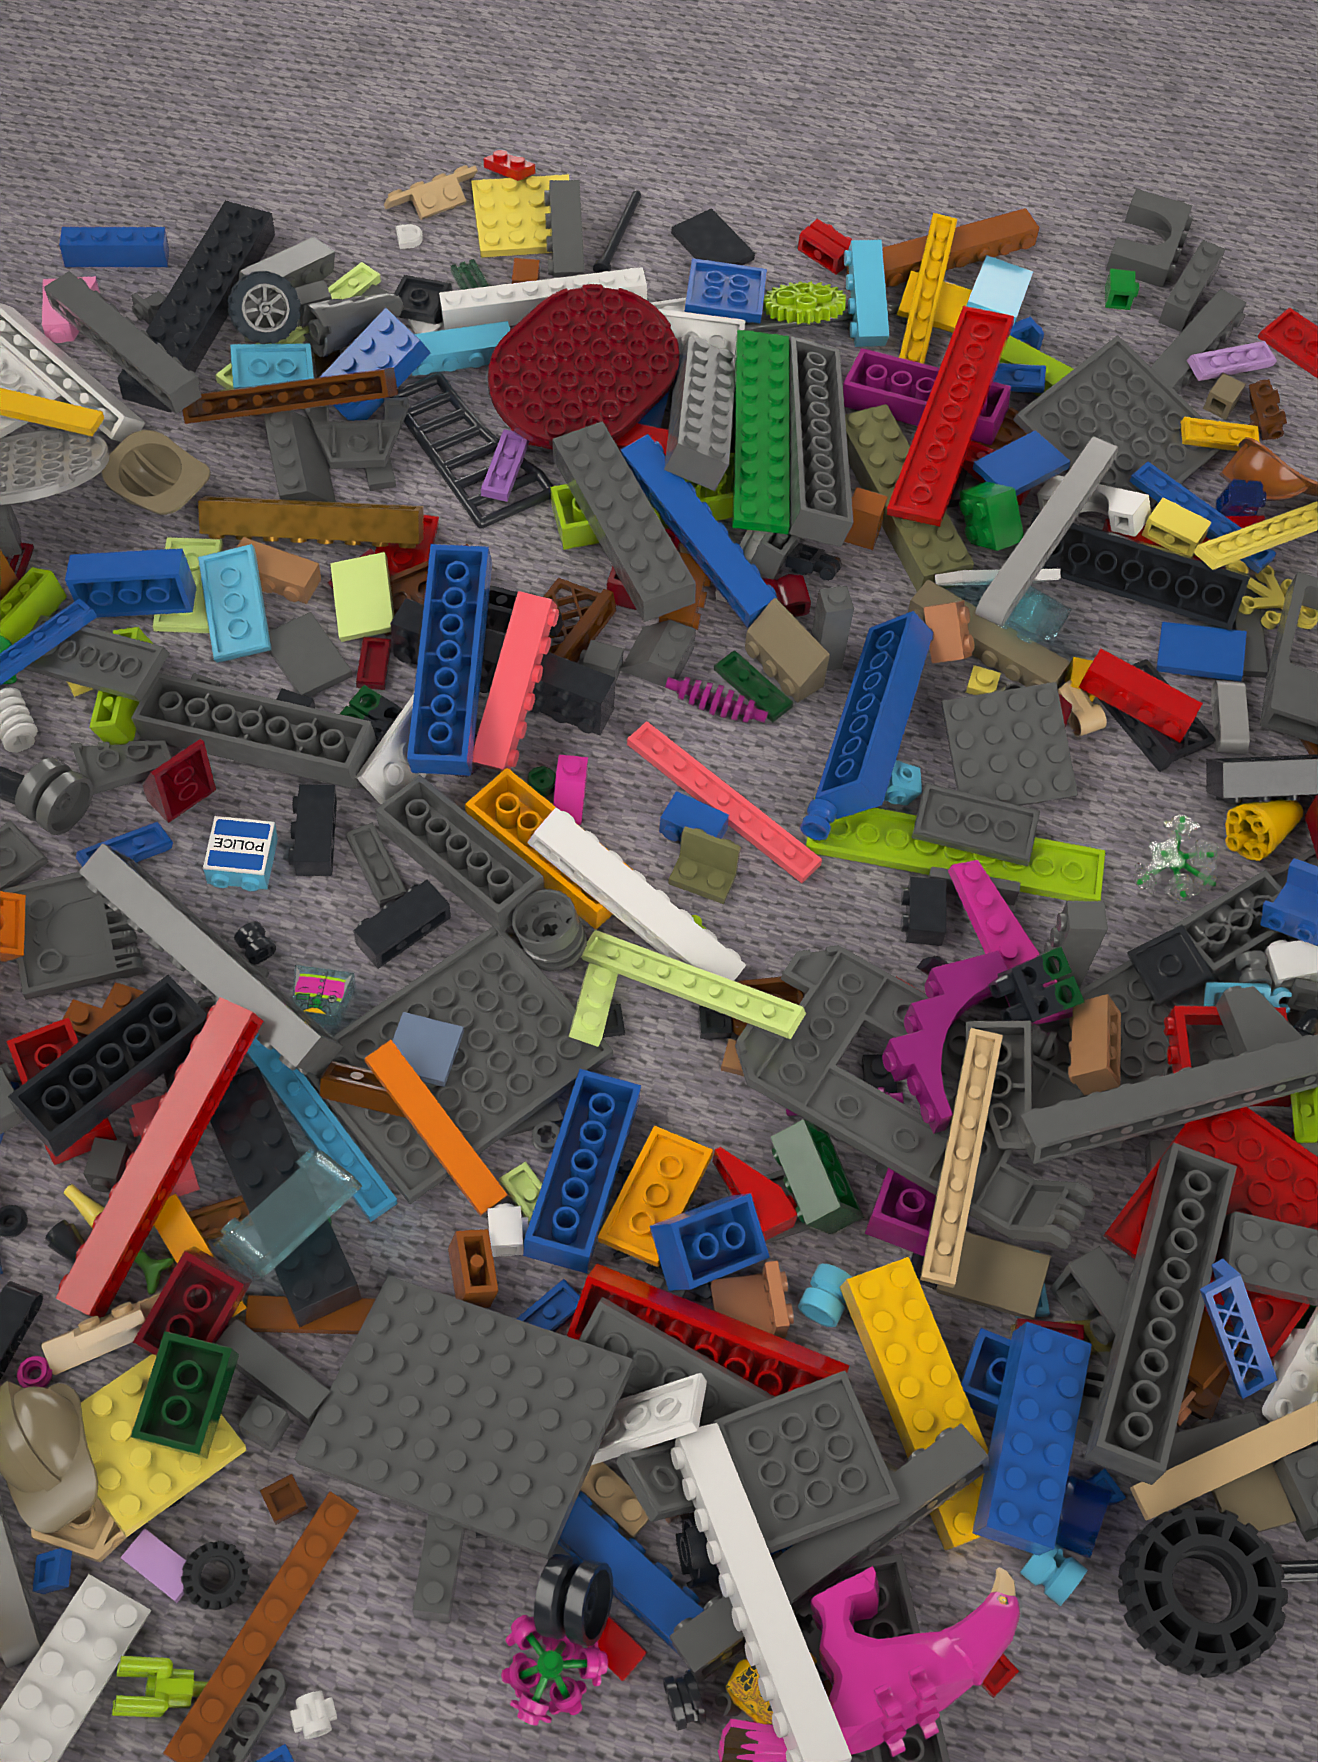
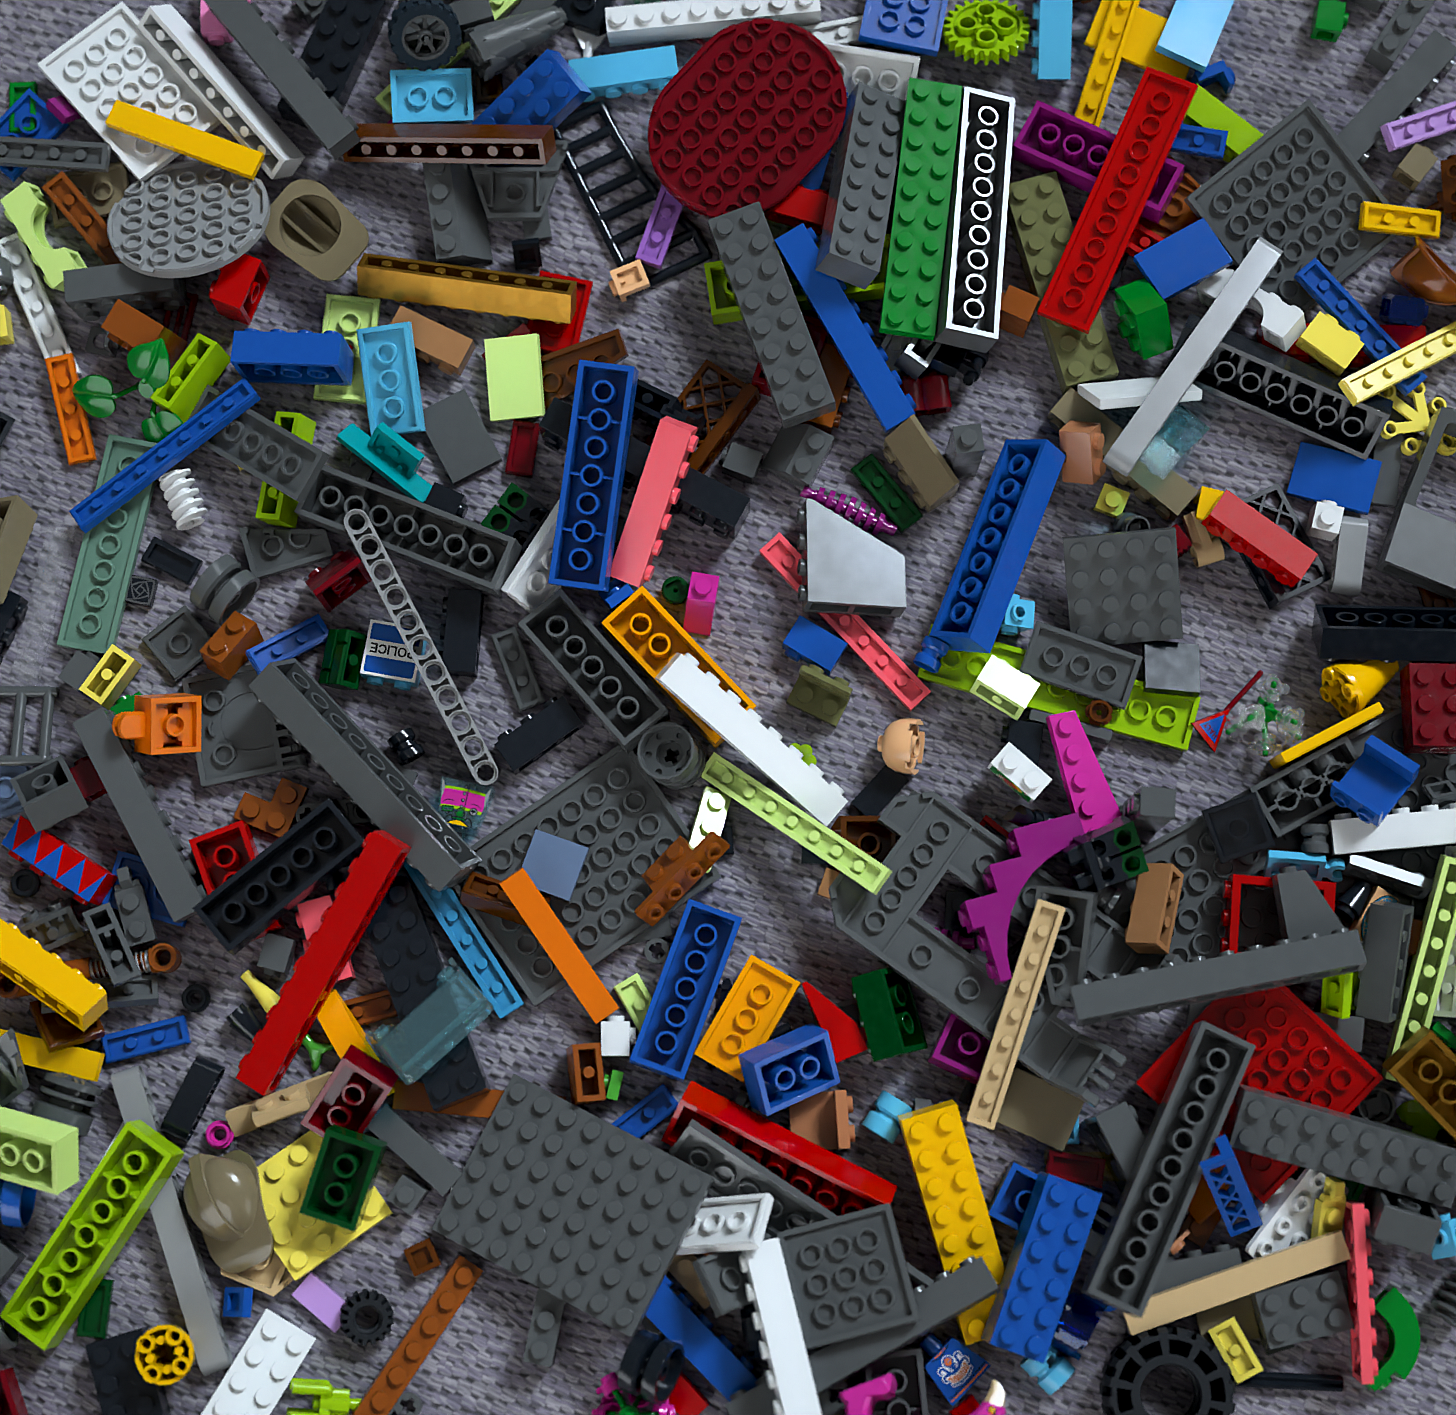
camera: 10 degrees right, 20 degrees up
(54, 852) = (227, 647): none -> dark orange brick
(76, 524) = (240, 288): none -> red brick
(184, 859) = (342, 659): none -> dark green brick
(229, 666) = (388, 456): none -> teal bracket
(273, 847) = (419, 633): none -> light grey beam
(371, 492) = (527, 253): none -> black plate
(474, 510) = (628, 280): none -> light nougat bracket
(478, 782) = (617, 594): none -> blue bracket
(505, 1281) = (612, 1084): none -> bright green plate
(565, 1043) = (676, 873): none -> dark orange bracket
(721, 746) = (846, 567): none -> slope
(777, 957) = (879, 792): none -> black tile
(798, 910) = (902, 745): none -> light nougat cylinder
(900, 844) = (1004, 687): none -> brick
(928, 921) = (1019, 773): none -> white brick
(940, 1581) = (952, 1366): none -> blue torso
(1006, 860) = (1104, 707): none -> reddish brown plate
(1070, 825) = (1171, 668): none -> tile
(1121, 878) = (1211, 727): none -> piece
(1201, 684) = (1324, 520): none -> white brick
(1267, 858) = (1326, 735): none -> yellow tile
(1275, 1529) = (1235, 1349): none -> light yellow plate

